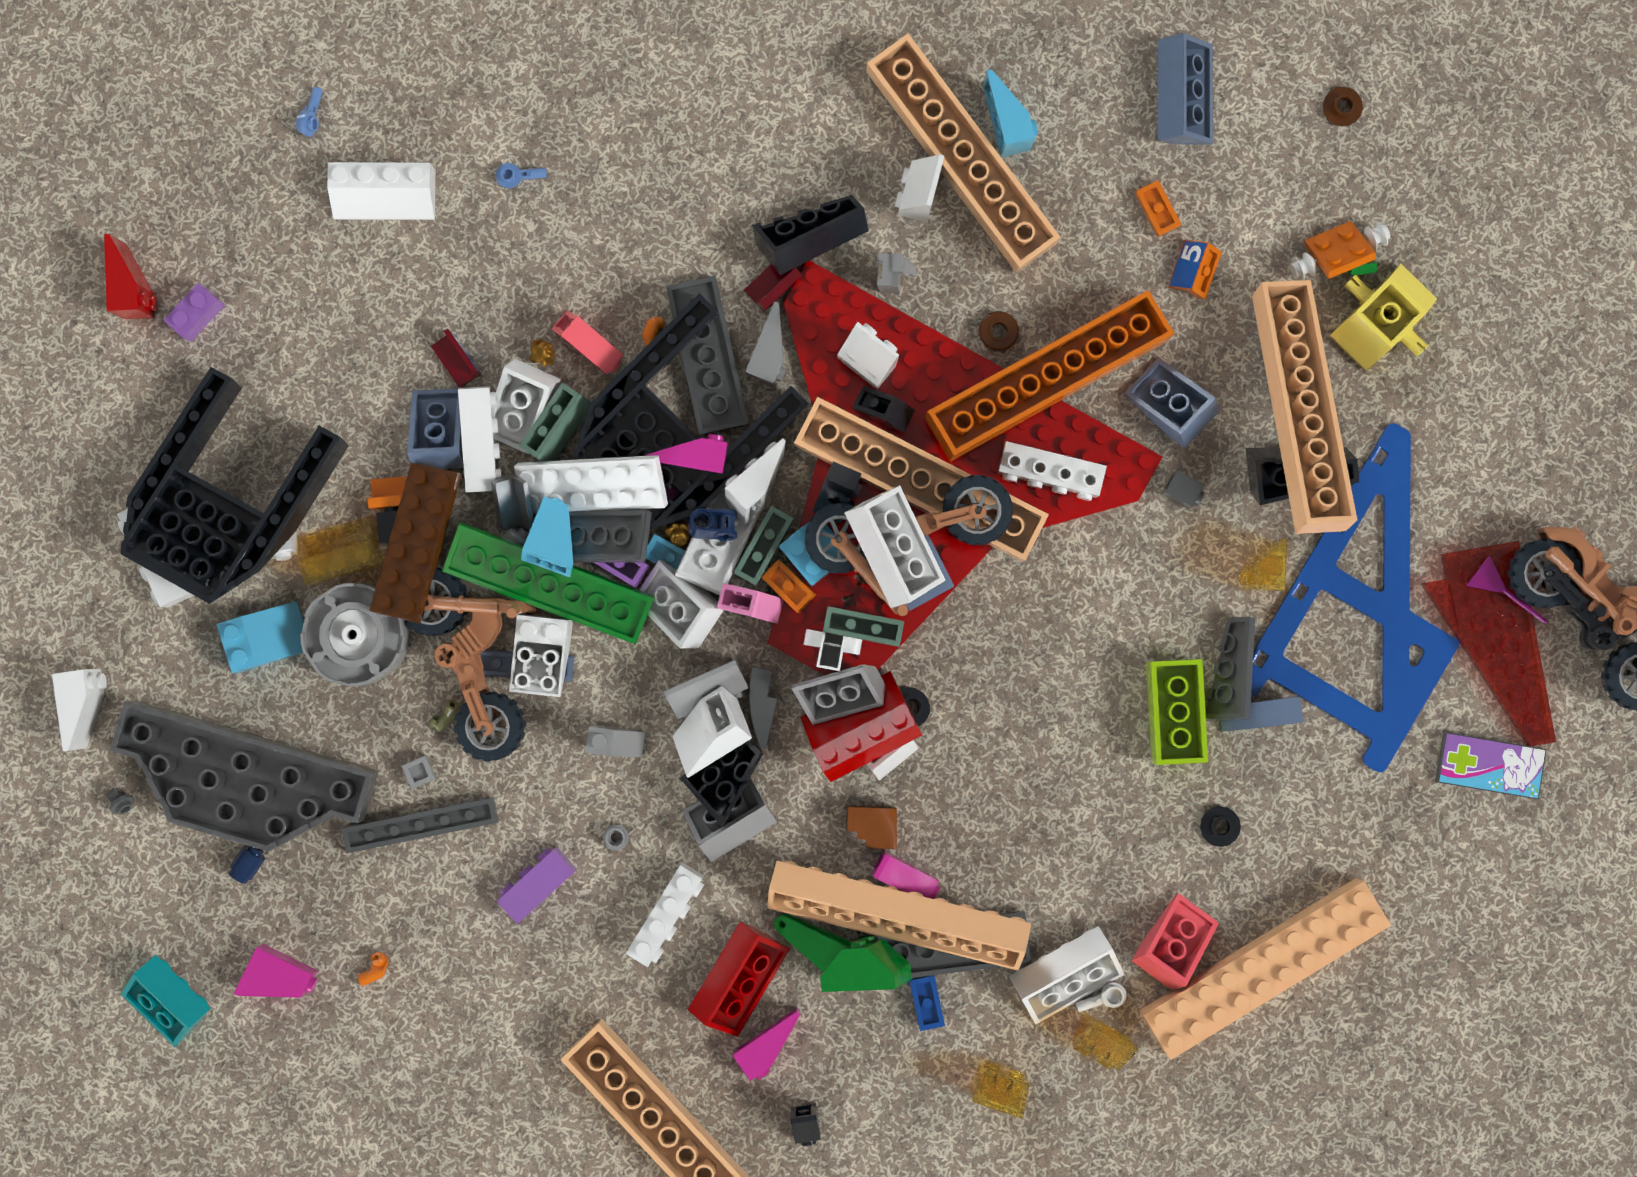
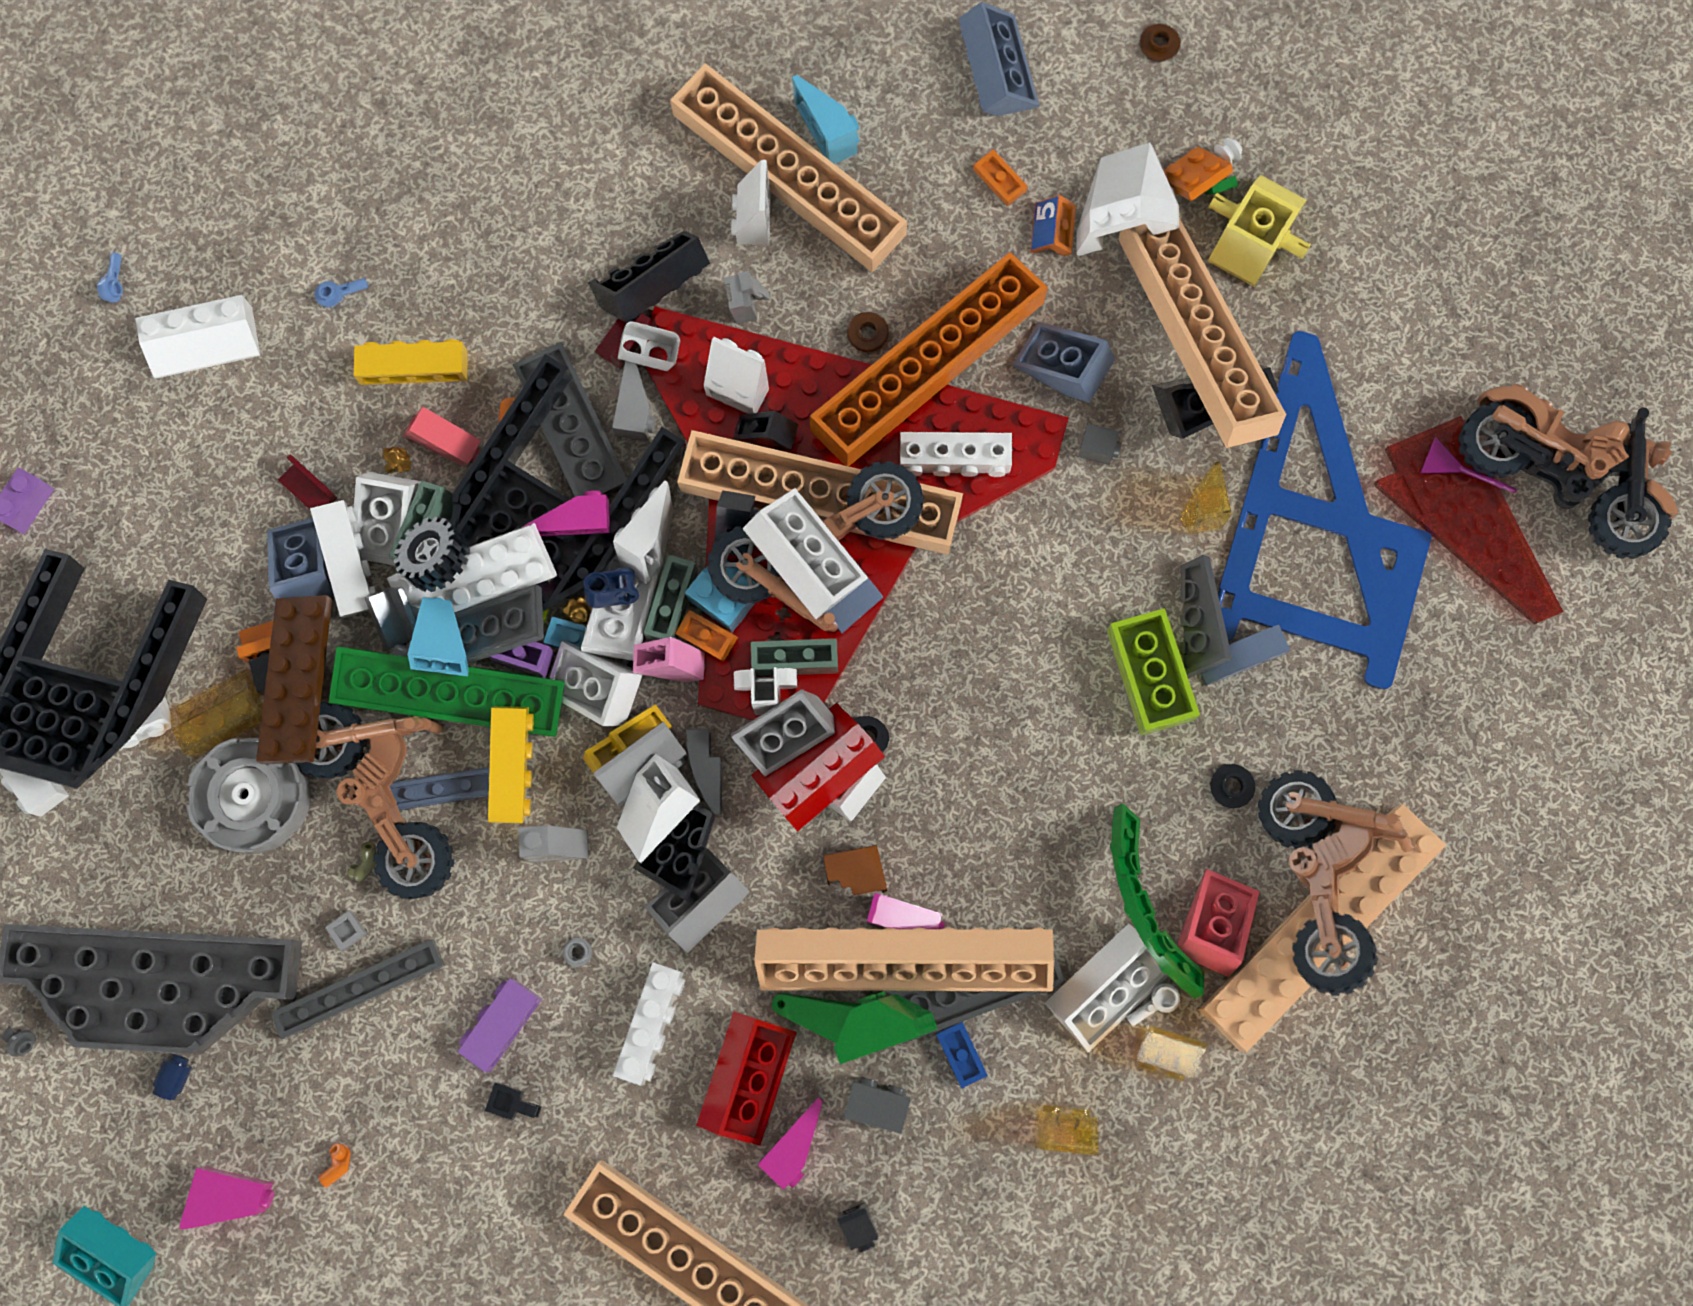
camera: 10 degrees left, 10 degrees down
(262, 637) = (147, 824): medium azure slope -> none
(530, 951) = (508, 1101): none -> black plate
(540, 654) = (454, 769): white slope -> none
(547, 461) = (431, 554): none -> black wheel
(573, 262) = (410, 362): none -> yellow brick
(590, 660) = (509, 764): none -> yellow brick
(697, 662) = (623, 737): none -> yellow slope
(814, 302) = (658, 338): none -> white piece
(845, 1030) = (877, 1106): none -> dark grey brick
(1110, 916) = (1139, 909): none -> green plate
(1270, 261) = (1125, 194): none -> white wedge
(1285, 918) = (1322, 871): none -> piece
(1490, 765) = (1502, 654): tile -> none

